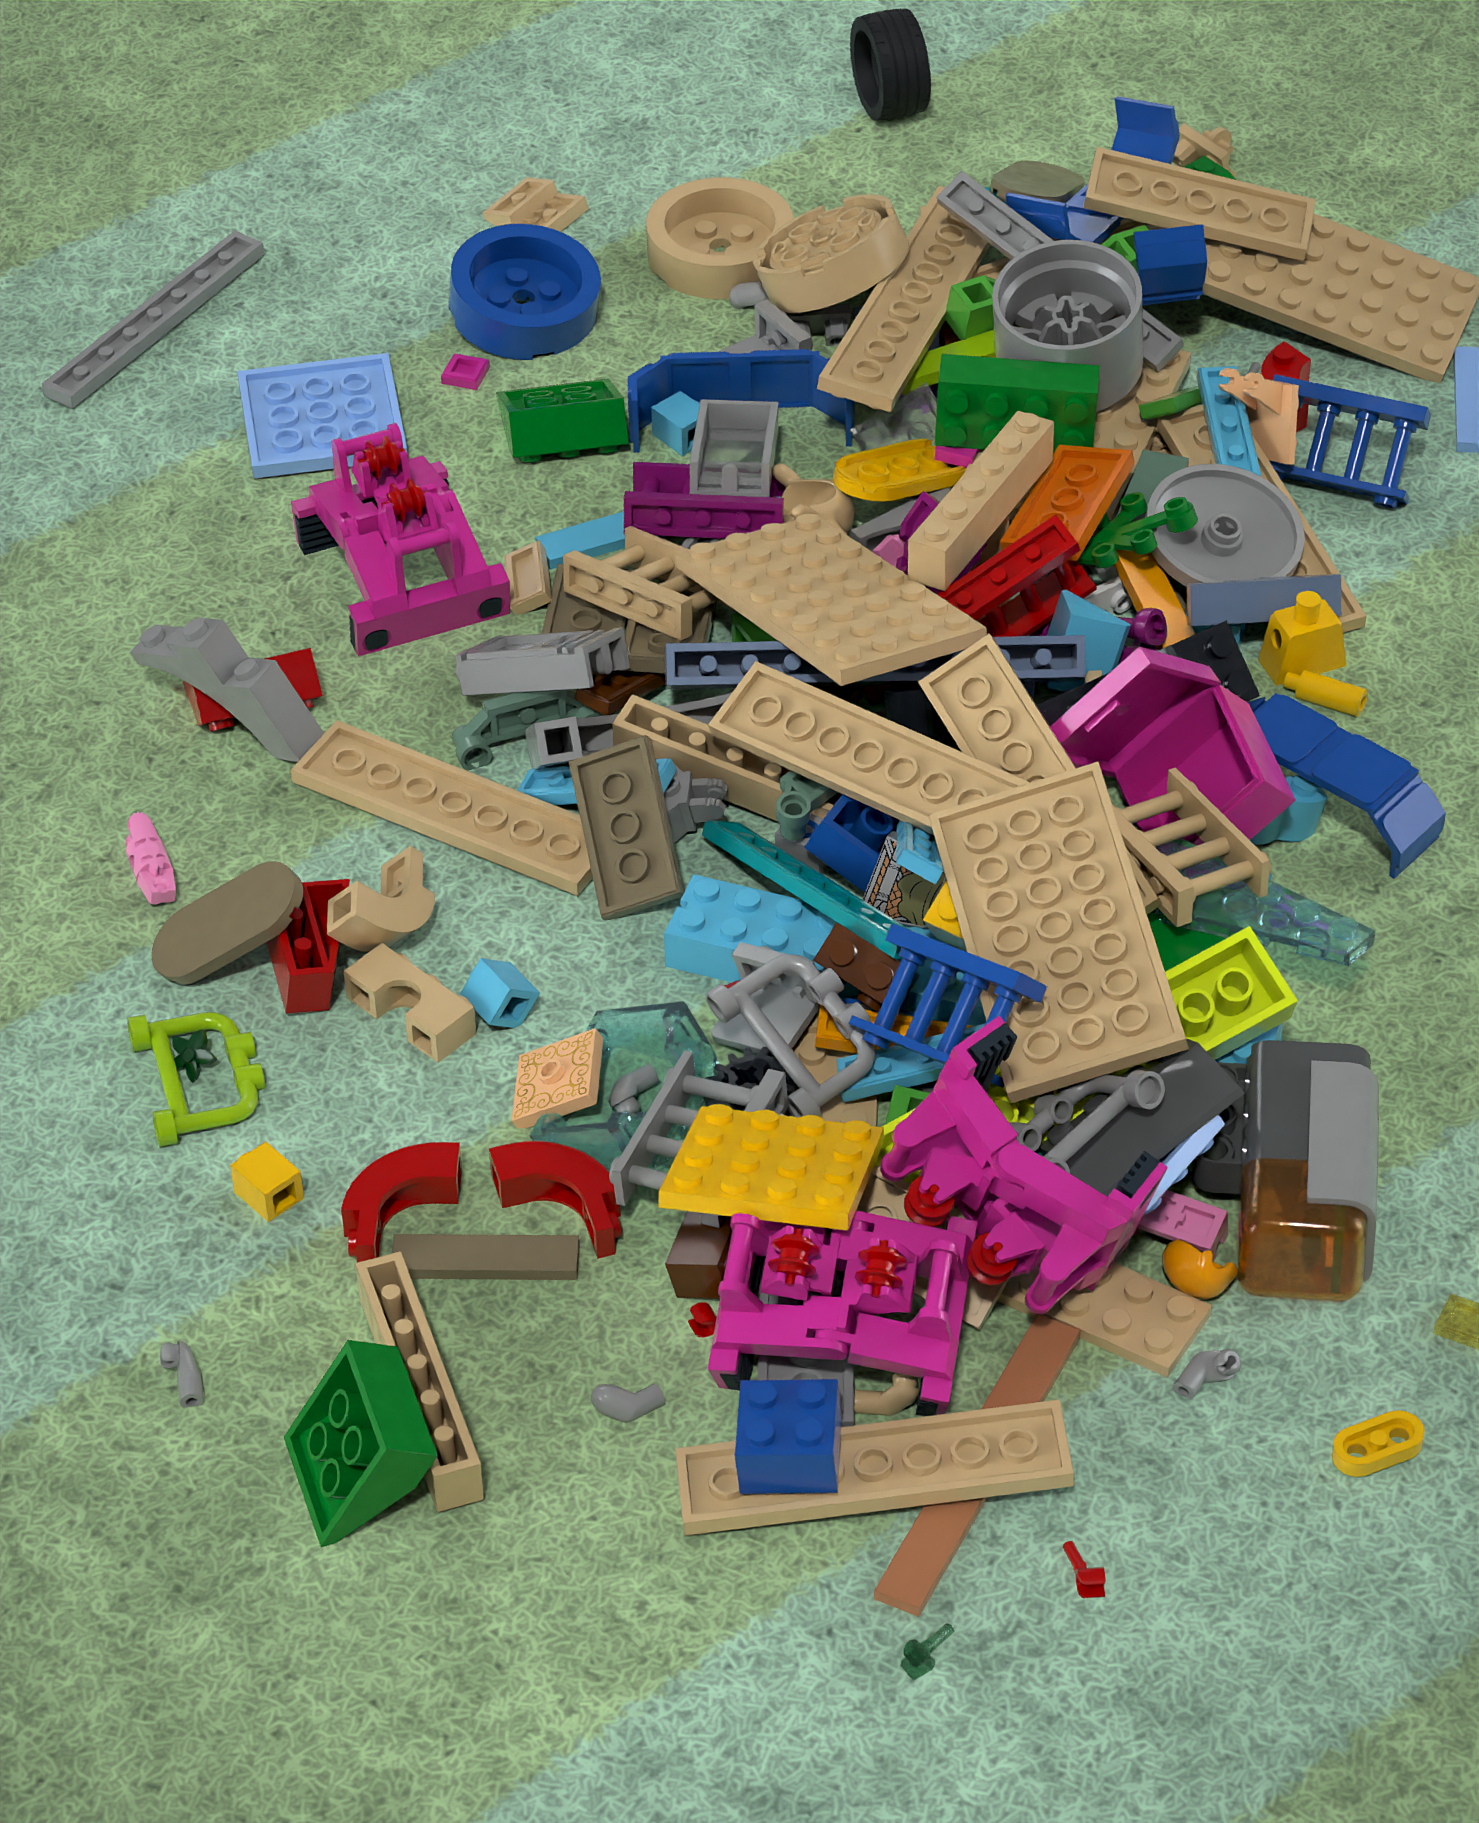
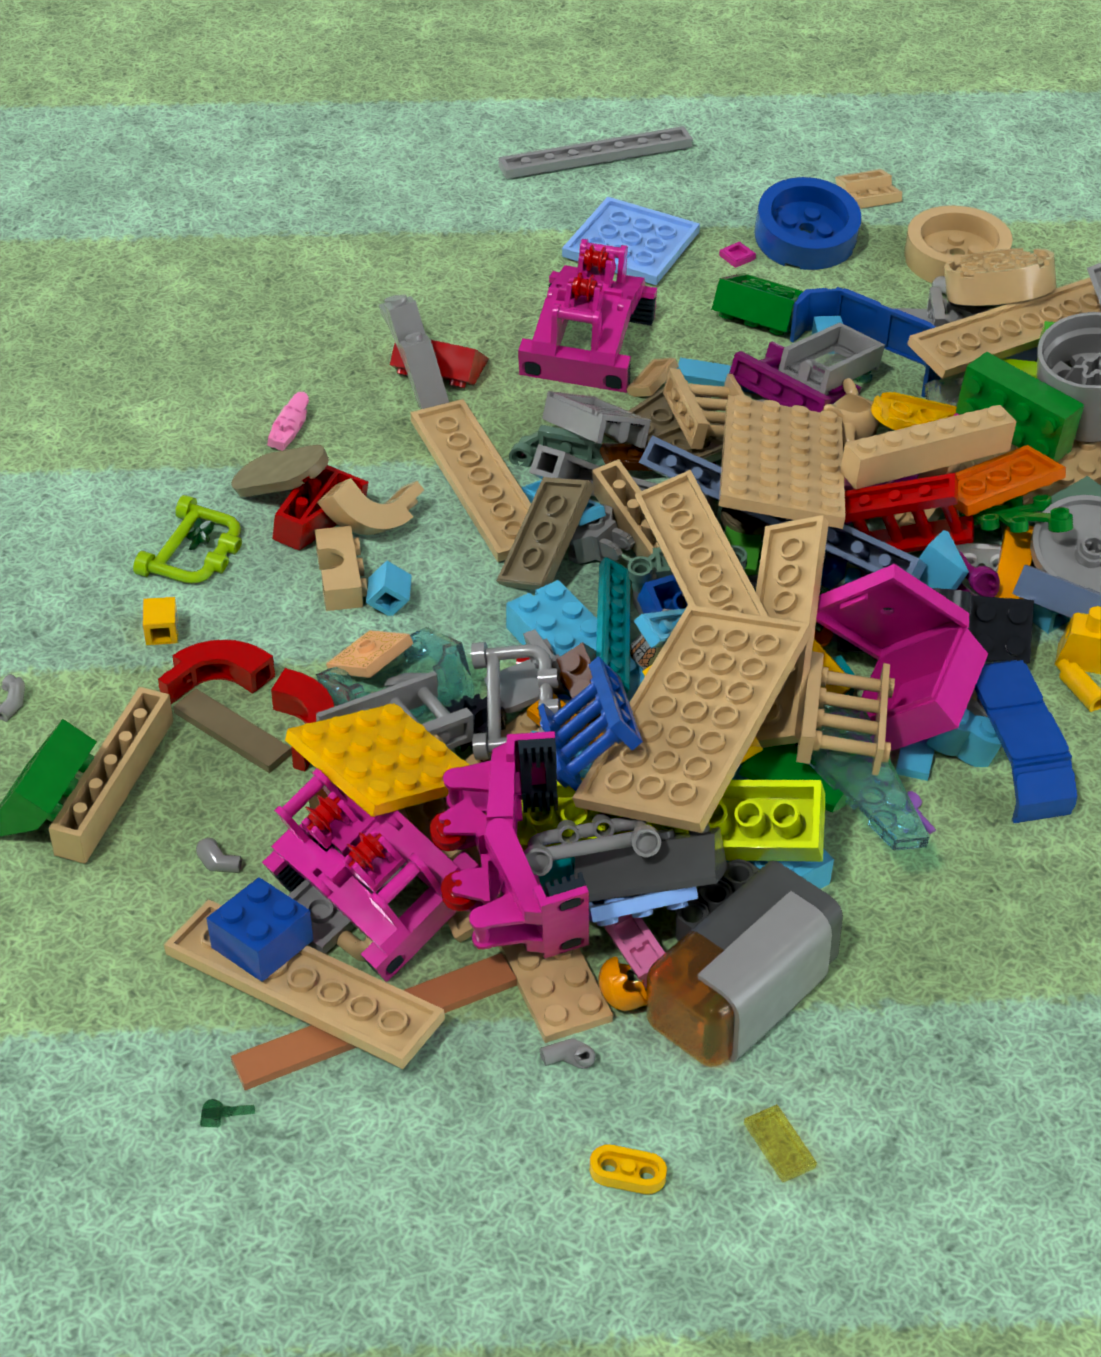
camera: 35 degrees right, 0 degrees up
(1088, 1580) = (362, 1135): red hand -> none

